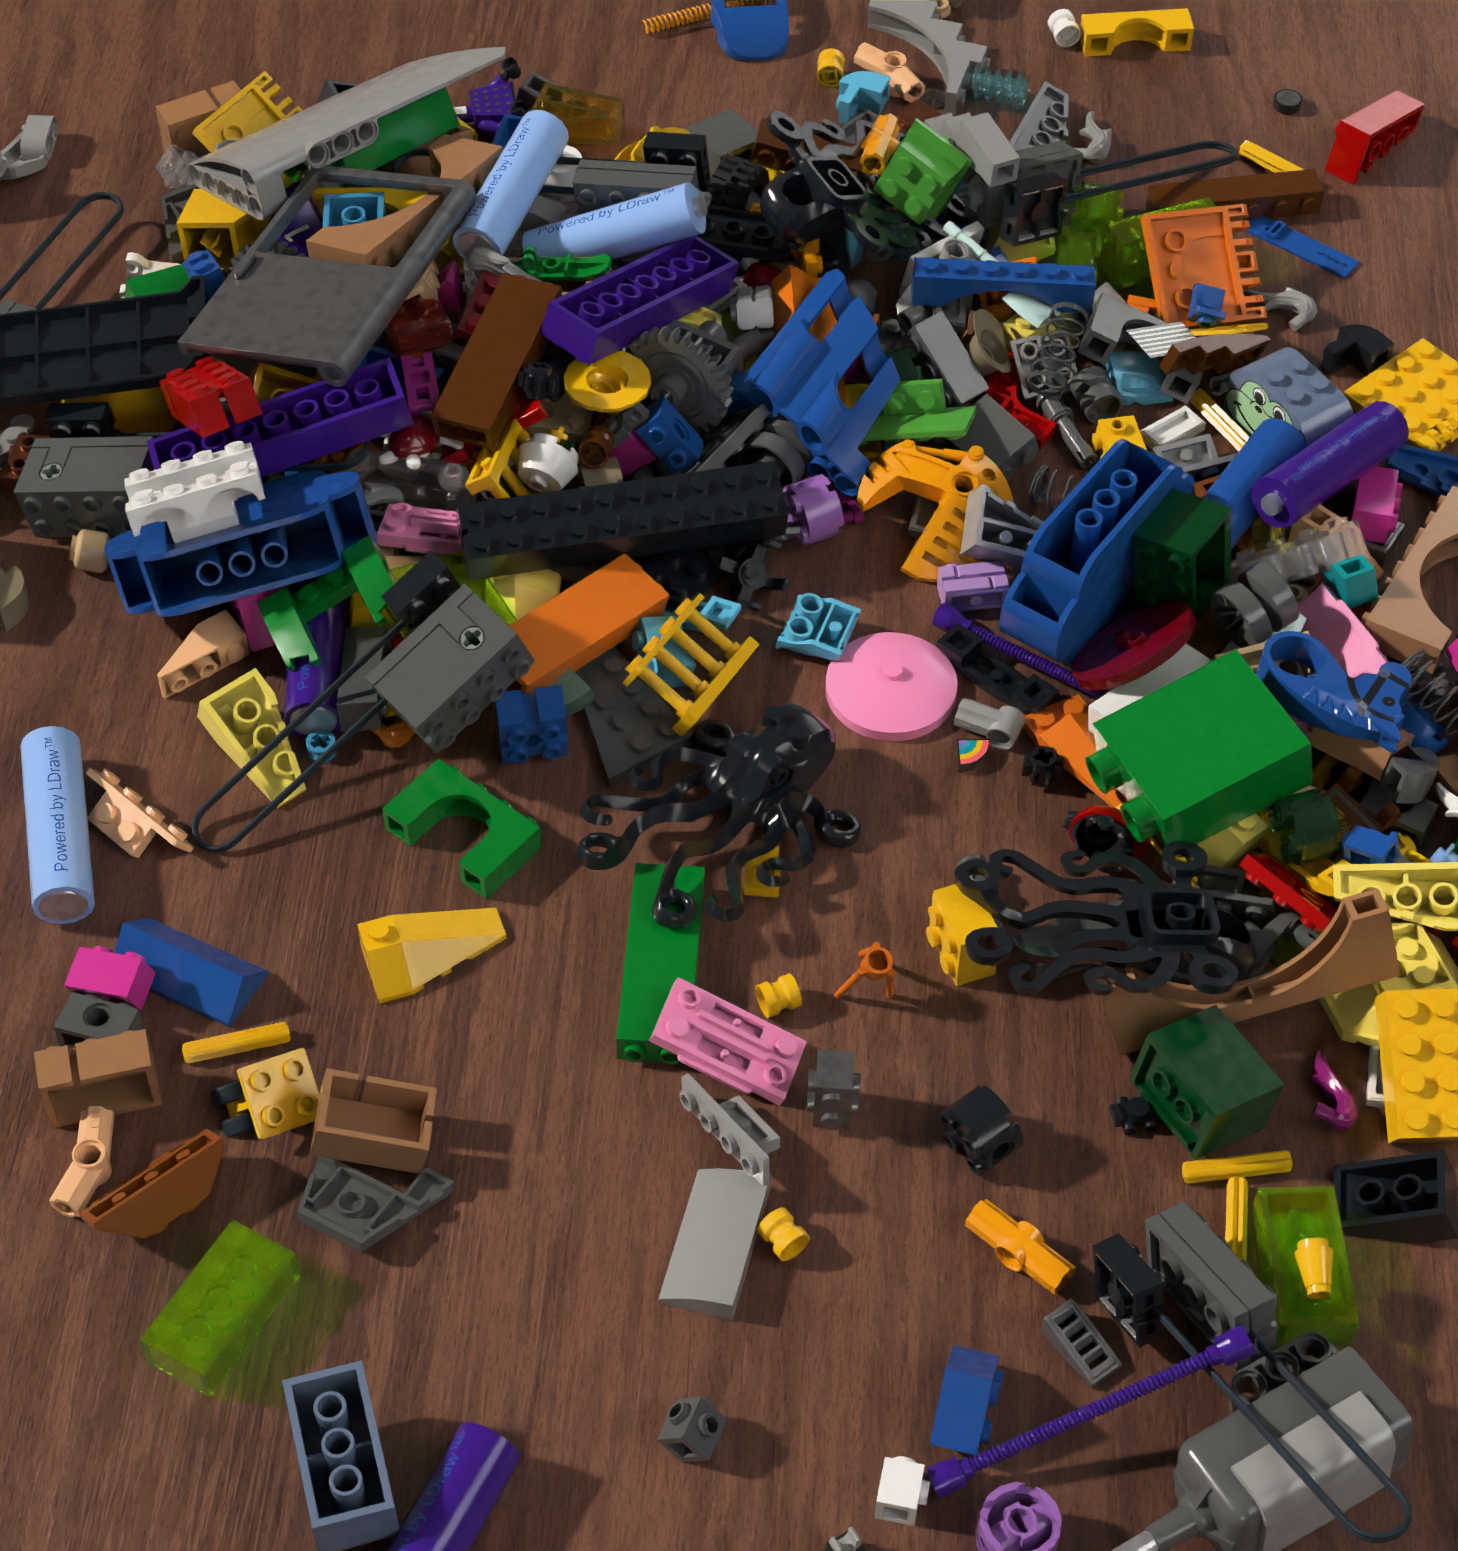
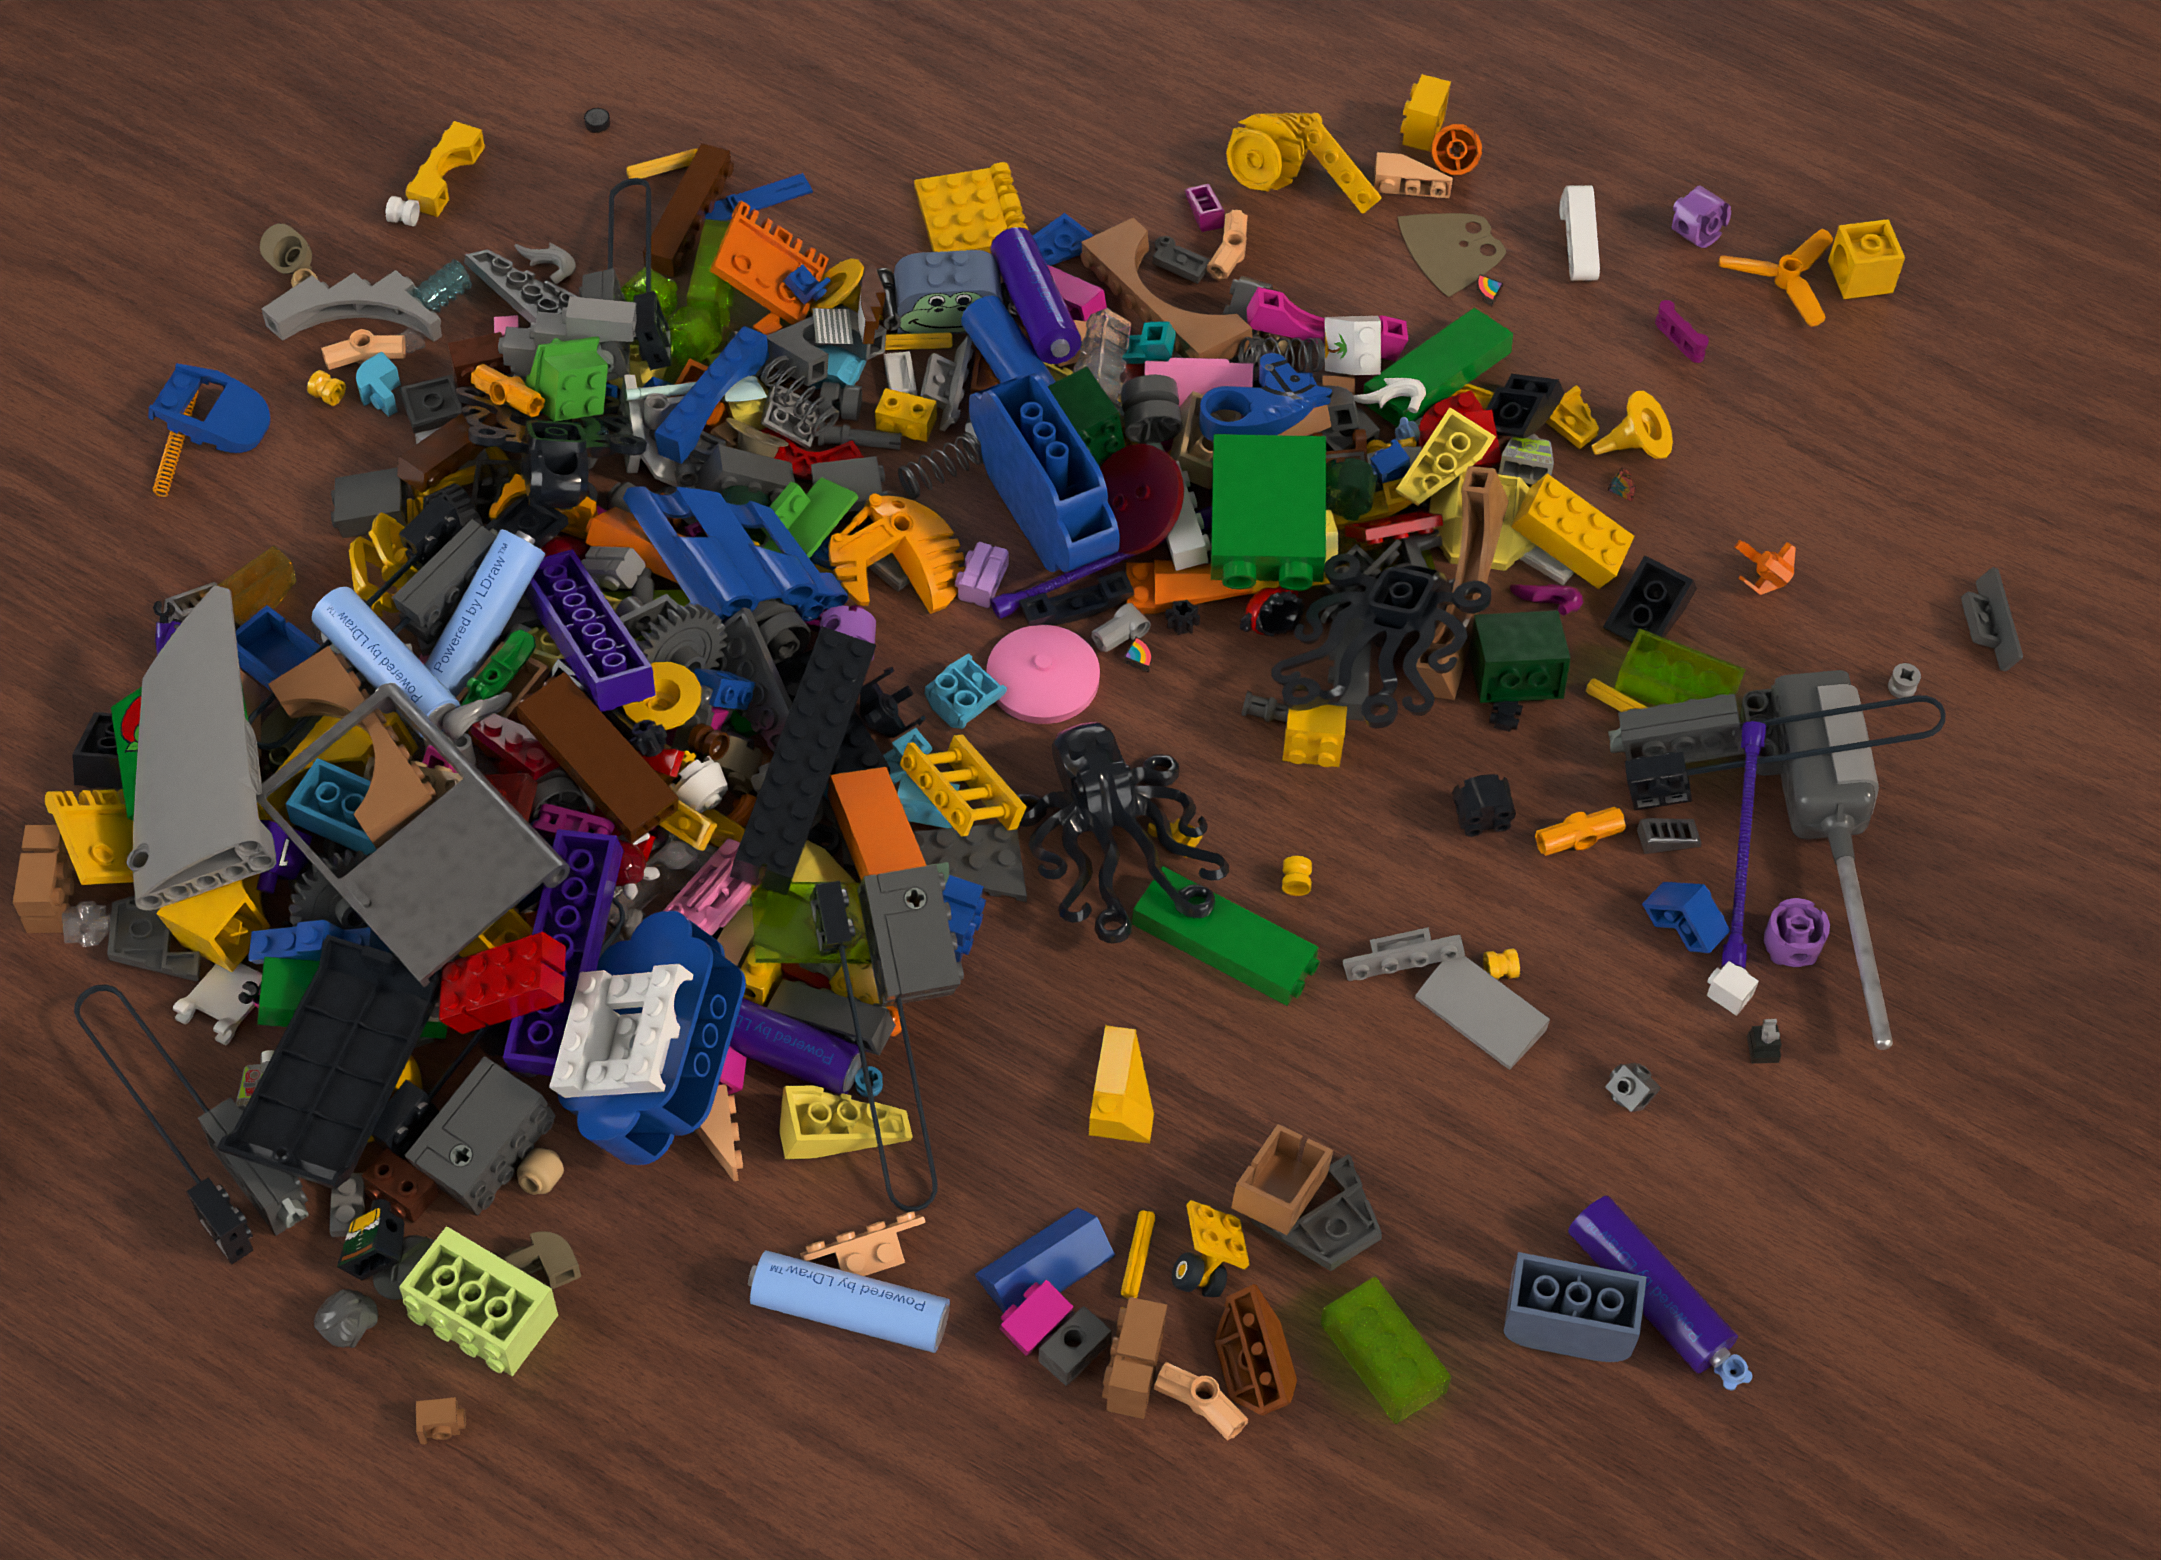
camera: 65 degrees left, 5 degrees up
(288, 613) = (753, 955): green wedge -> none
(446, 793) = (1045, 985): green arch -> none
(727, 1042) = (1327, 923): bright pink piece -> none
(833, 1089) = (1407, 876): flat silver brick -> none
(874, 966) = (1321, 798): orange plant -> none
(996, 529) = (962, 522): light grey wedge -> none
(1237, 1166) = (1577, 679): yellow axle -> none
(1291, 300) = (824, 231): light grey piece -> none
(1315, 1265) = (1701, 667): yellow cone -> none
(1359, 346) = (901, 220): black brick -> none
(1372, 134) = (684, 89): red wedge -> none

